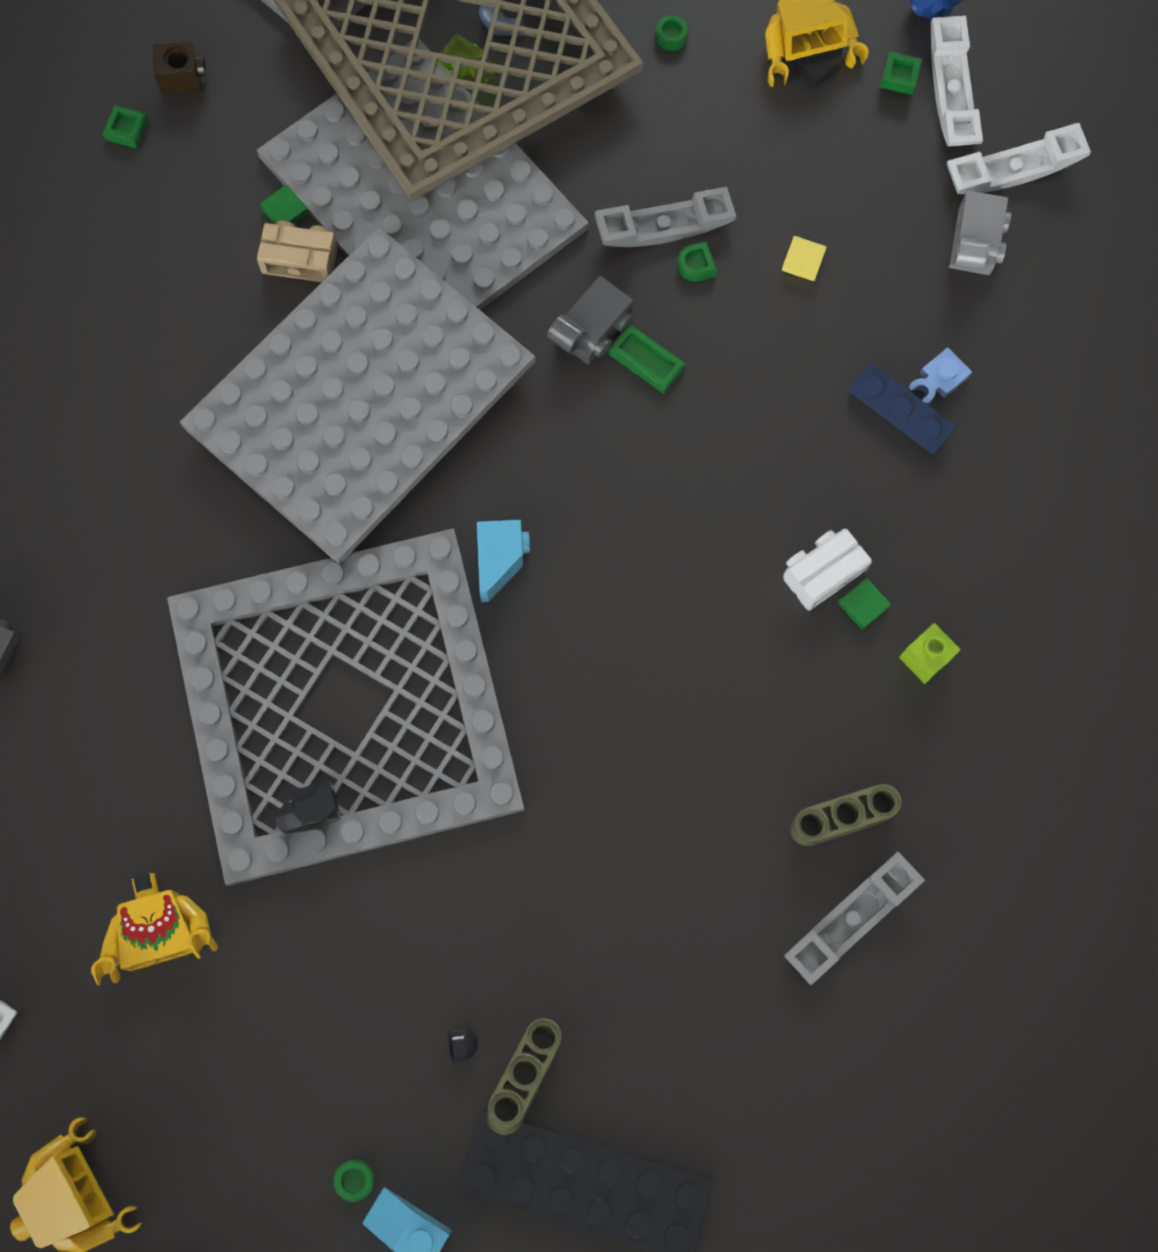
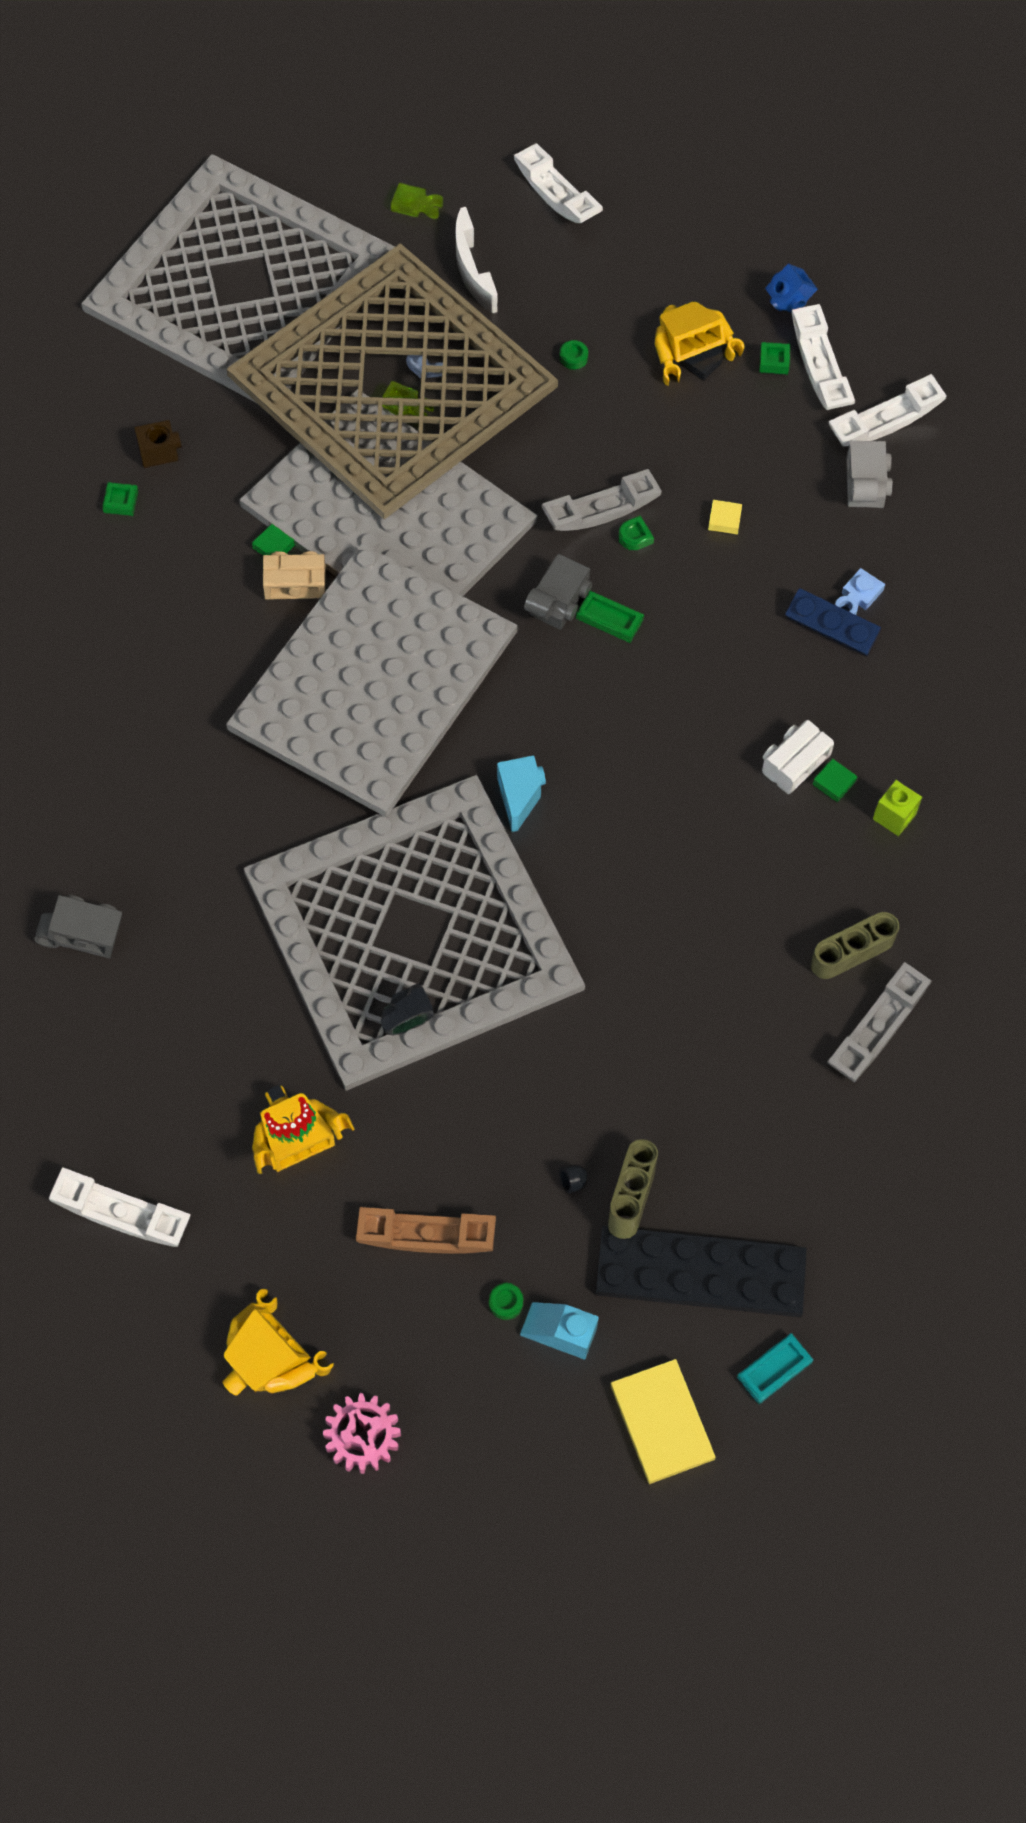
camera: 10 degrees left, 10 degrees down
(278, 1080) = (426, 1233): none -> medium nougat slope

